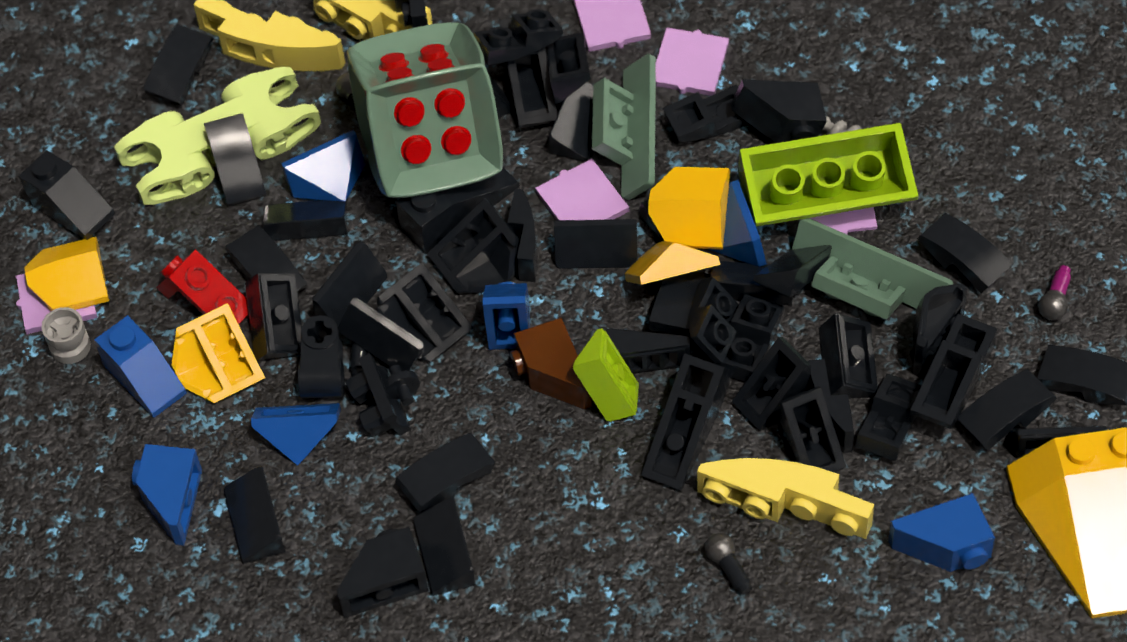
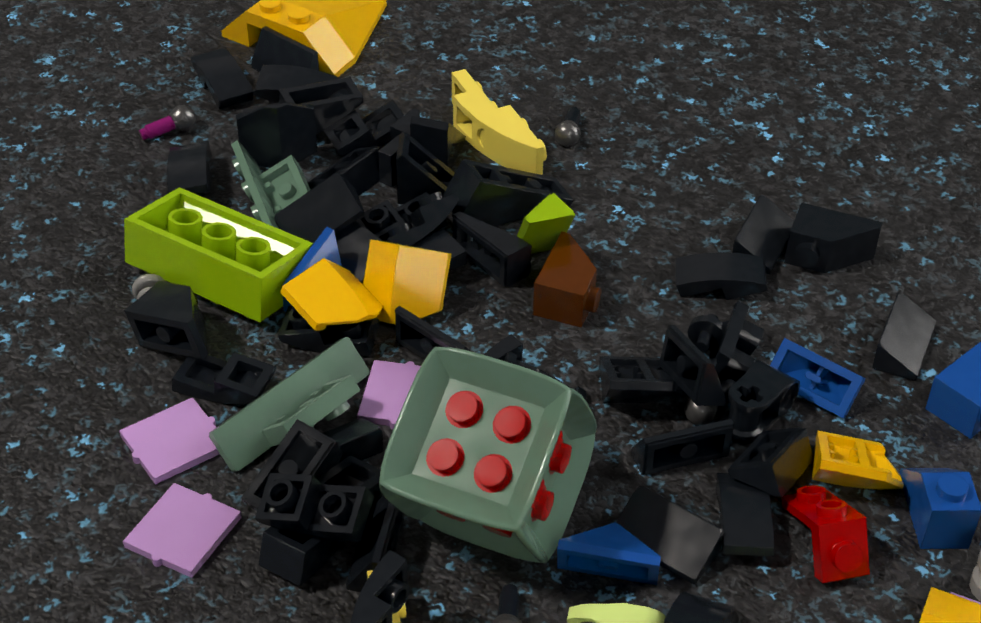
camera: 145 degrees left, 15 degrees down
(505, 313) = (570, 318): blue slope -> none
(945, 535) = (420, 57): blue slope -> none

